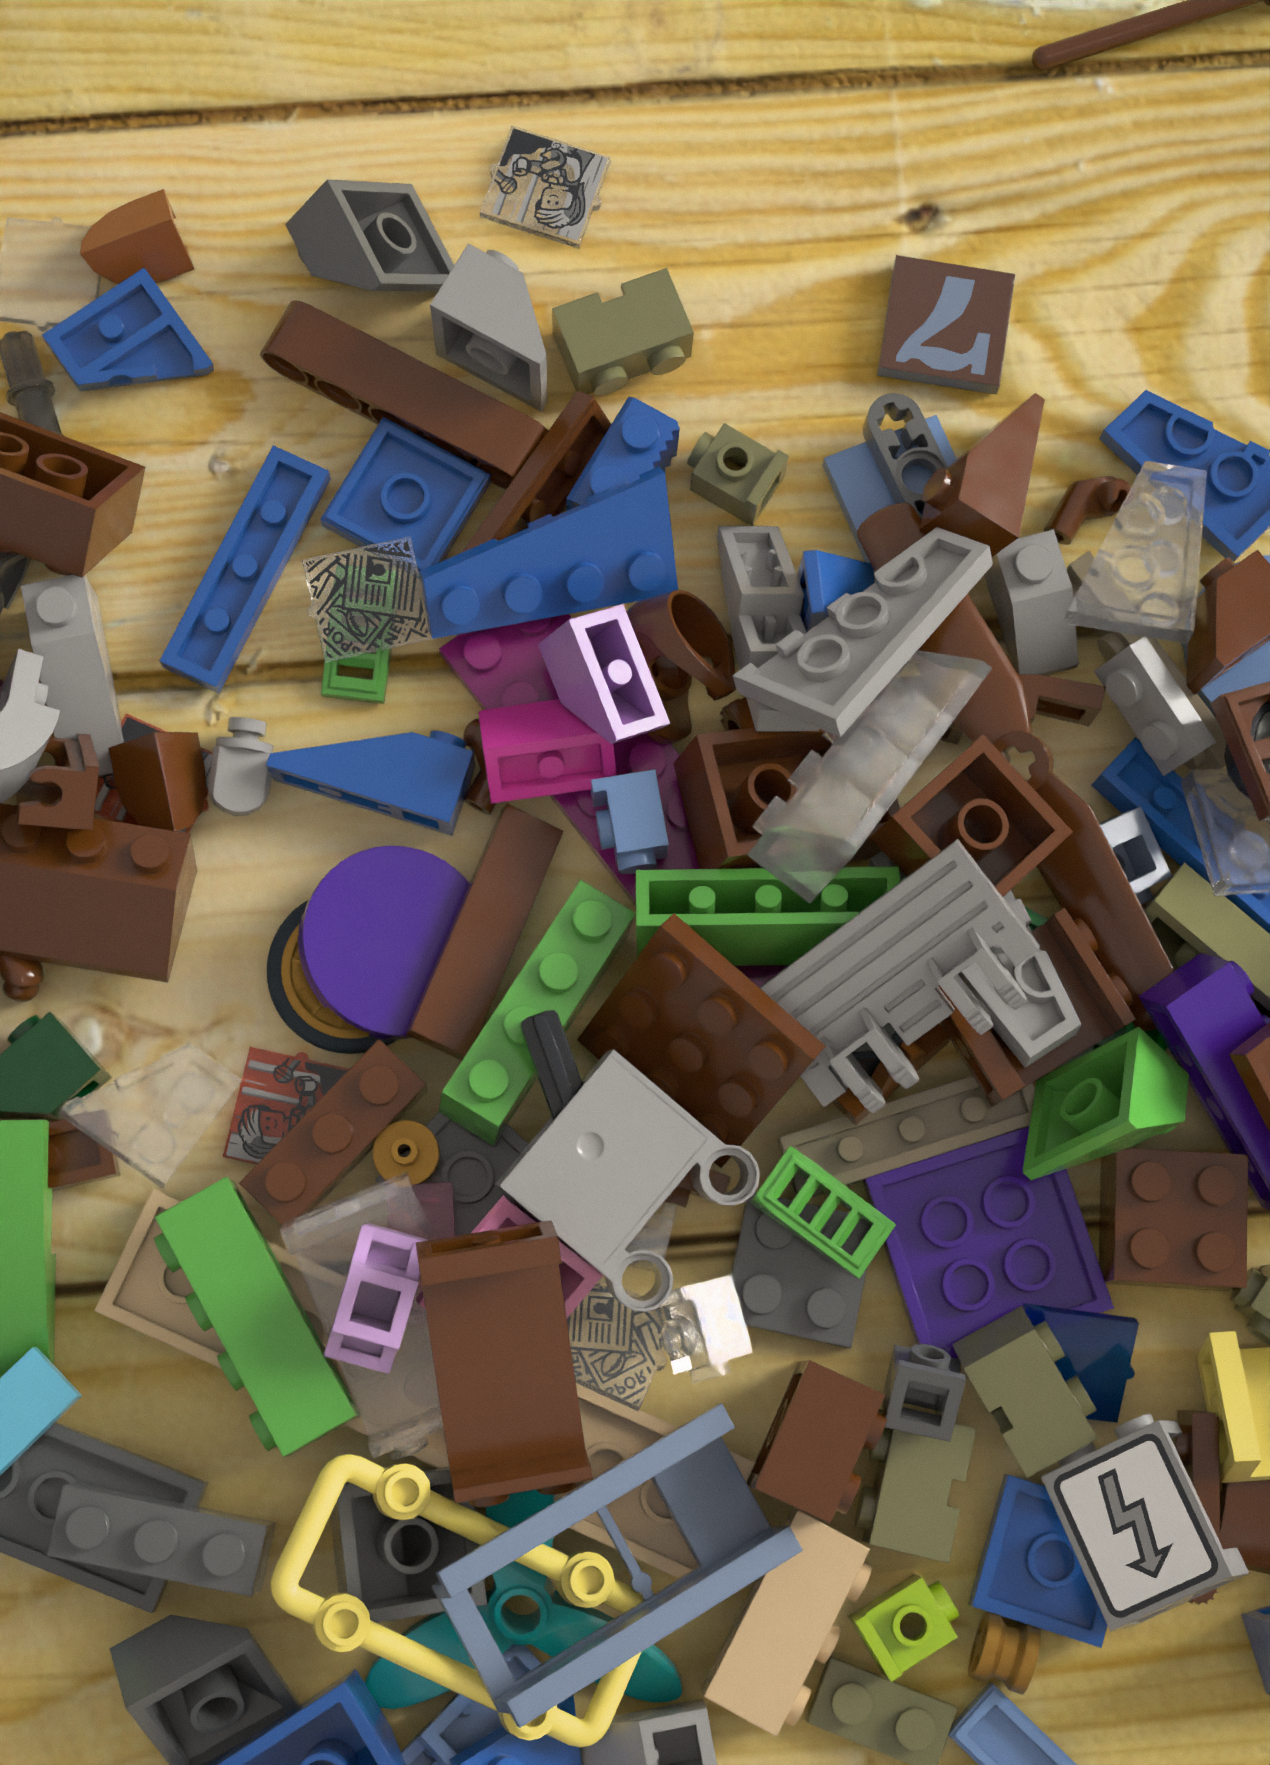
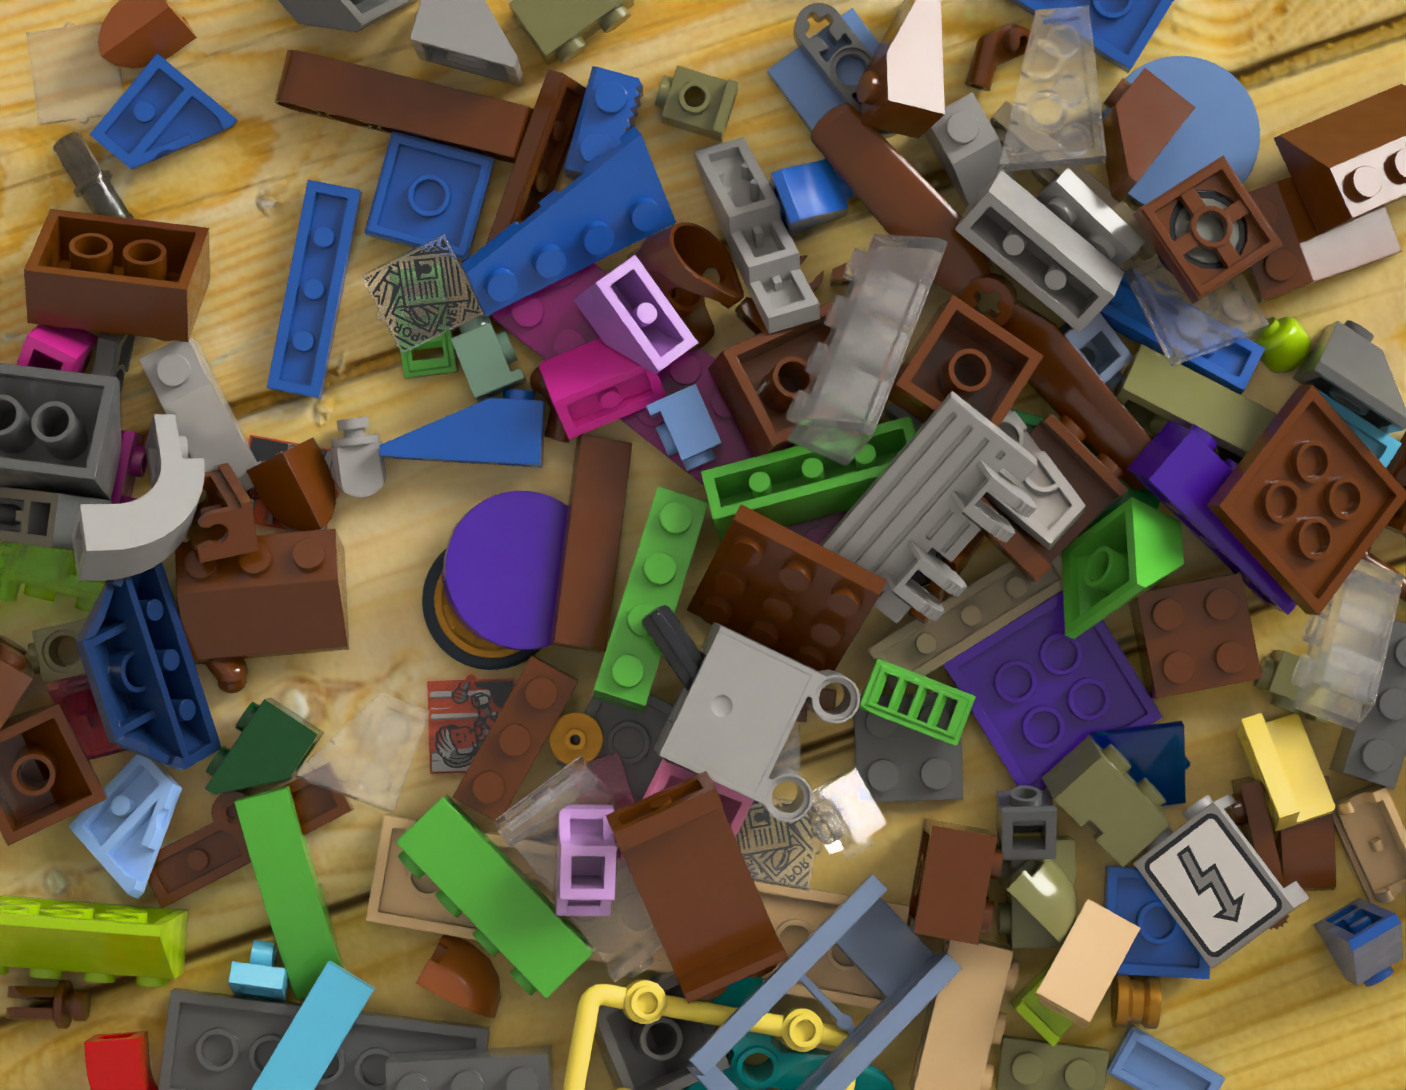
camera: 10 degrees left, 10 degrees up
(192, 1411) = (462, 976): none -> dark orange brick
(421, 691) = (486, 358): none -> sand green brick
(869, 635) = (832, 251): light grey wing -> none
(925, 1487) = (1045, 894): none -> olive brick
(957, 1586) = (1086, 963): none -> tan hinge
(1093, 718) = (1040, 251): none -> light grey brick

